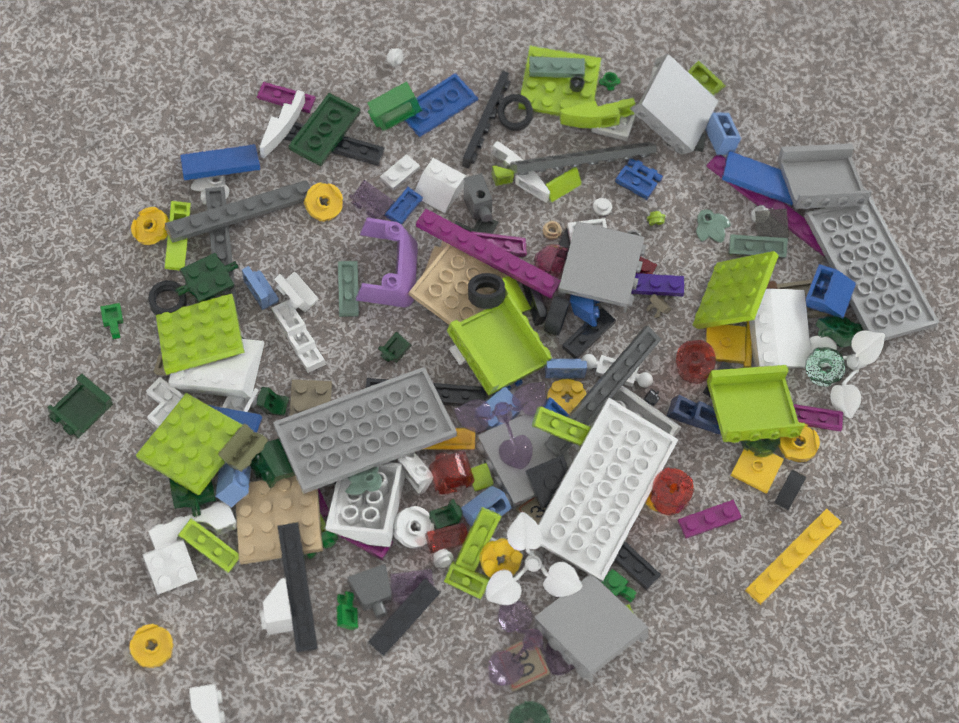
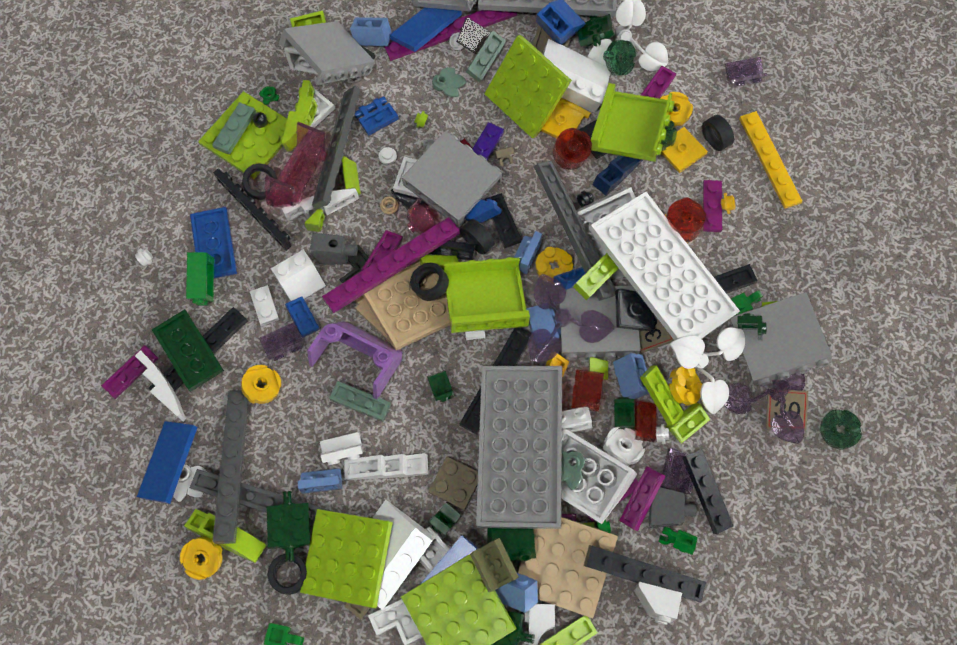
camera: 55 degrees left, 5 degrees up
(369, 560) = (642, 498): none -> magenta tile
(538, 136) = (298, 171): none -> clear pink windscreen
(591, 595) = (751, 322): none -> dark green bracket
(644, 379) = (542, 218): white plate -> none
(719, 531) = (728, 203): none -> yellow plate
(882, 493) = (745, 70): none -> clear purple bracket

